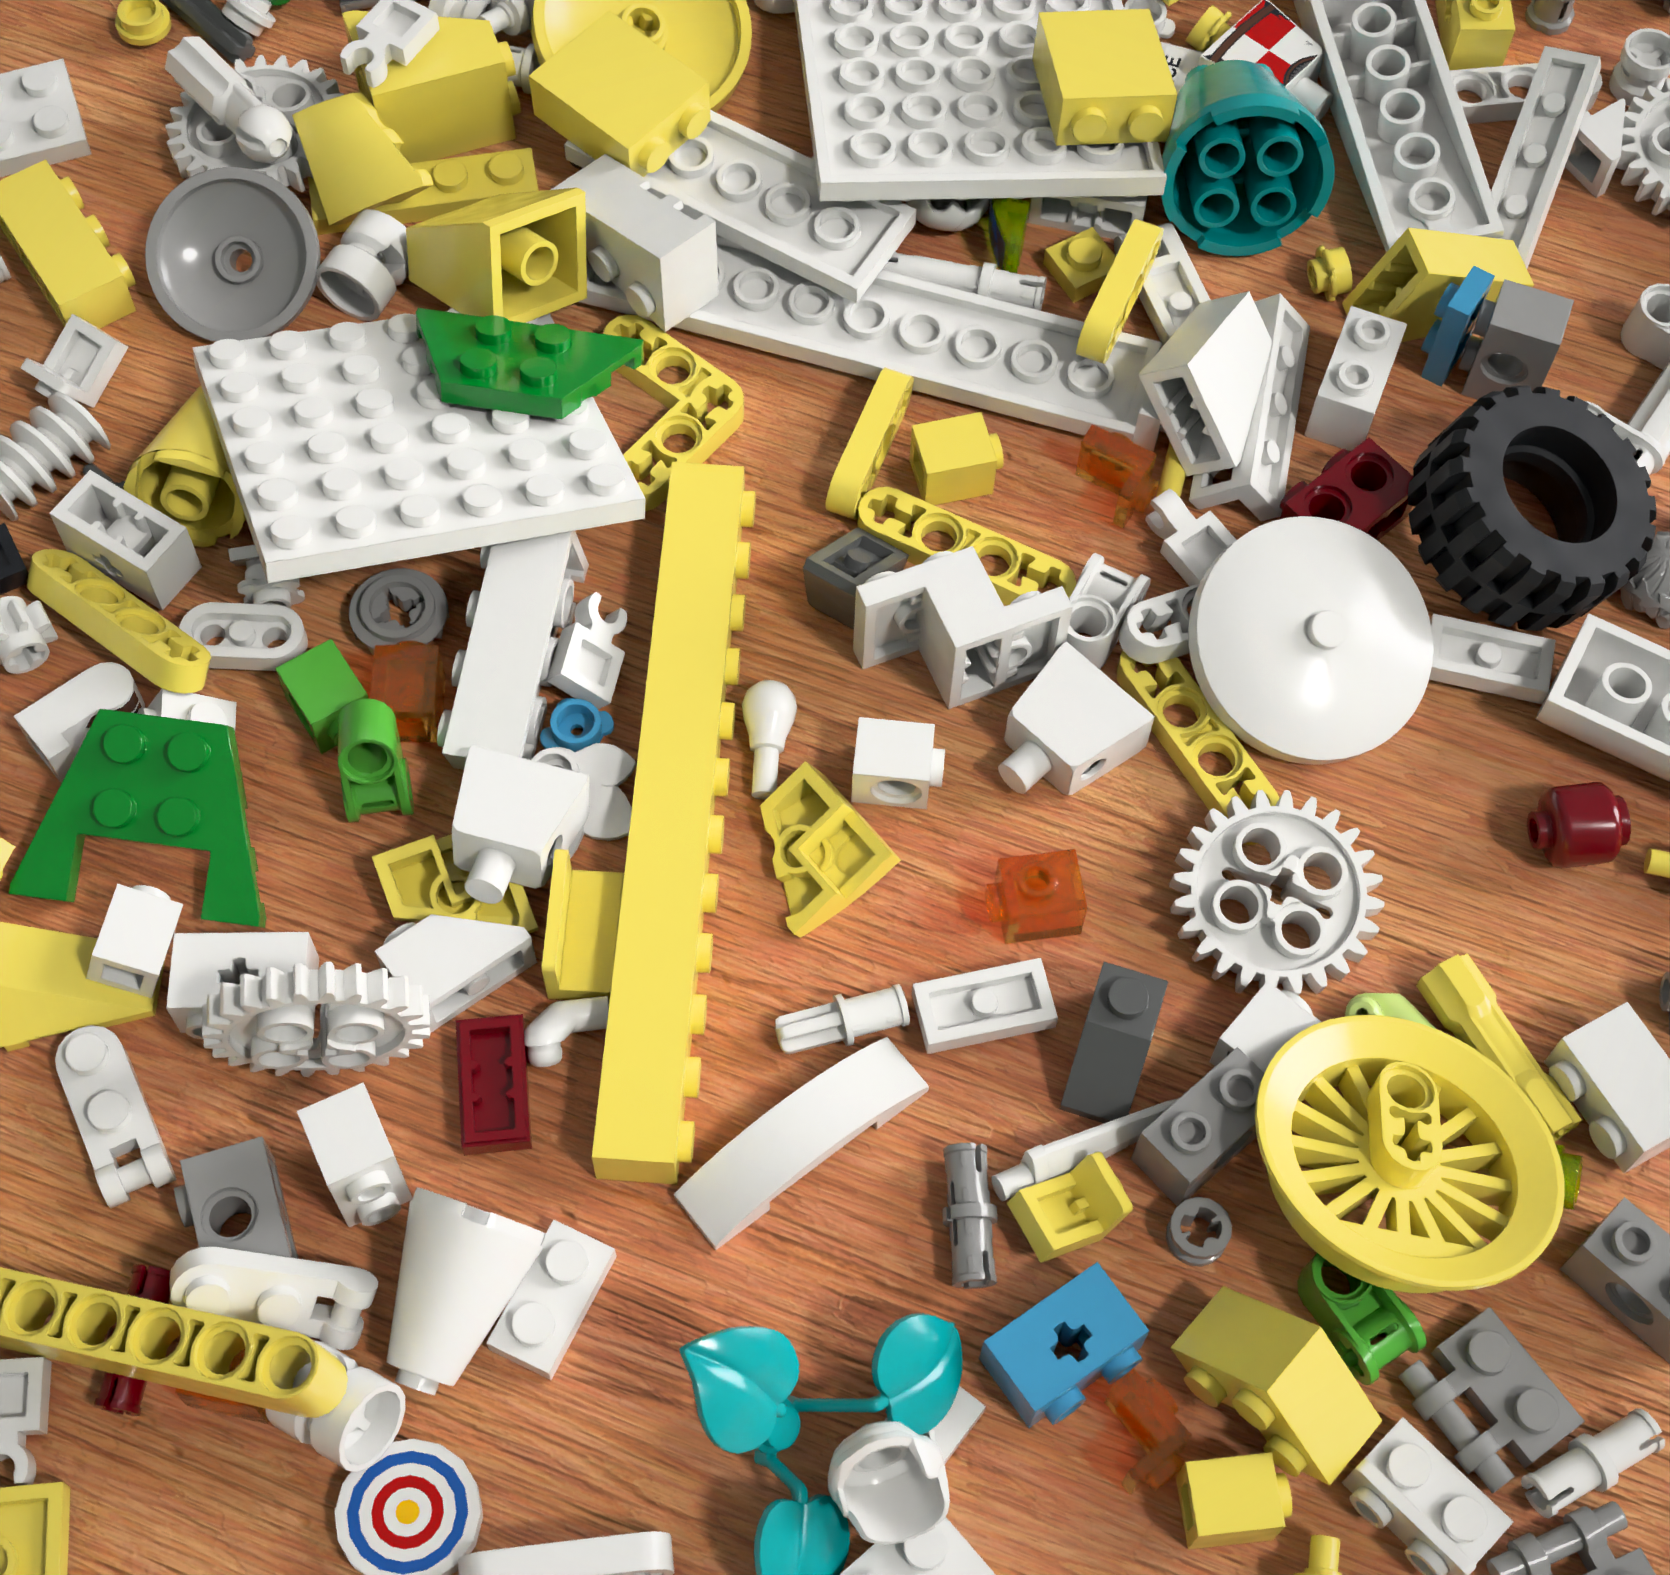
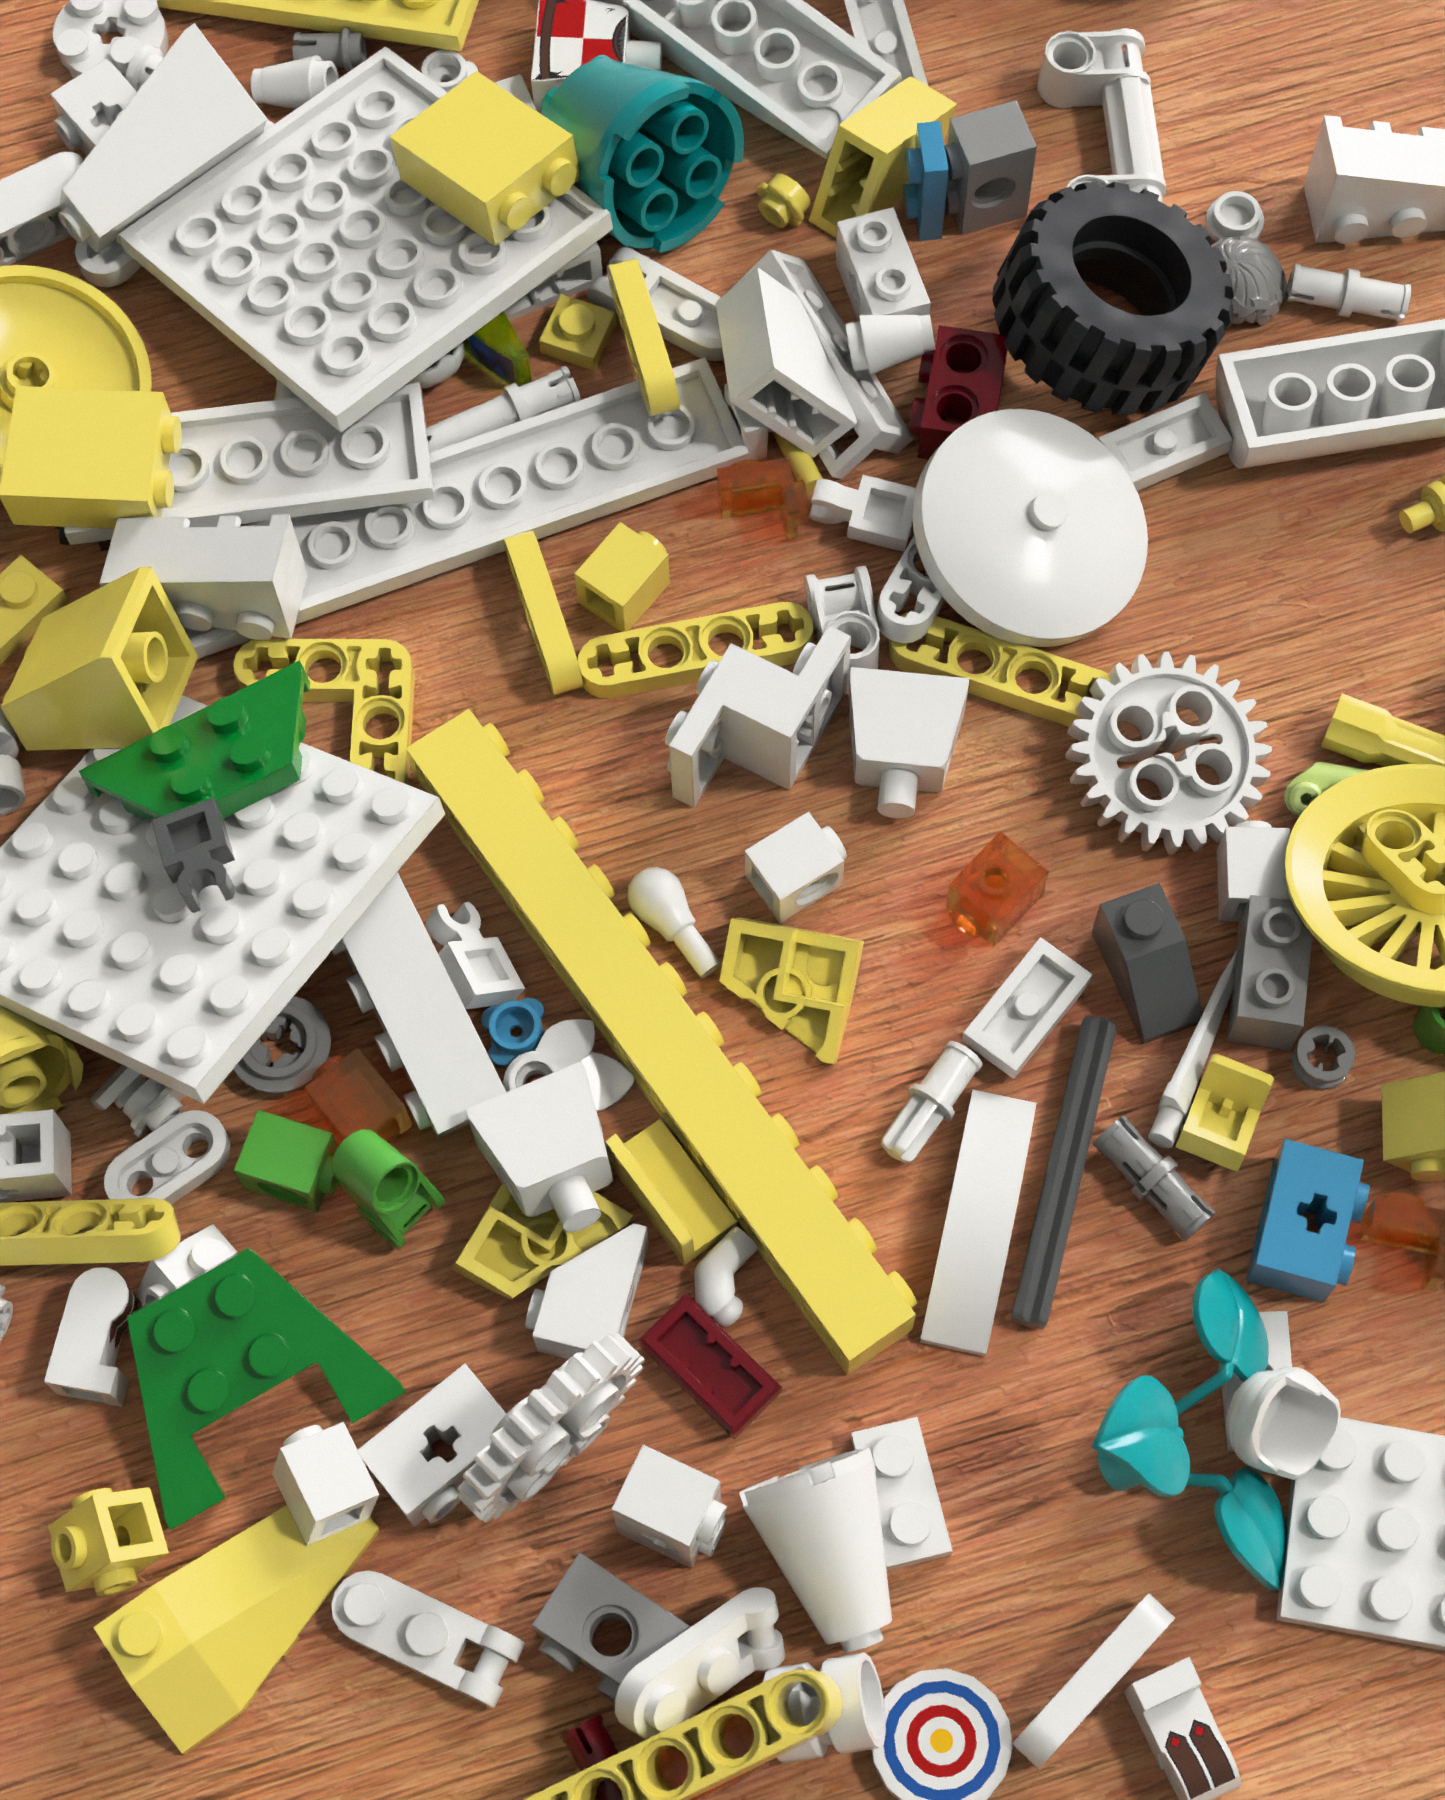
camera: 35 degrees left, 5 degrees up
(430, 405) = (195, 849): none -> dark grey plate
(843, 565) = (629, 735): dark grey slope -> none
(901, 1156) = (1064, 1173): none -> dark grey axle
(1209, 29) = (510, 50): light yellow plate -> none
(1313, 419) = (888, 340): none -> white cone
(1579, 825) = (1339, 530): dark red head -> none

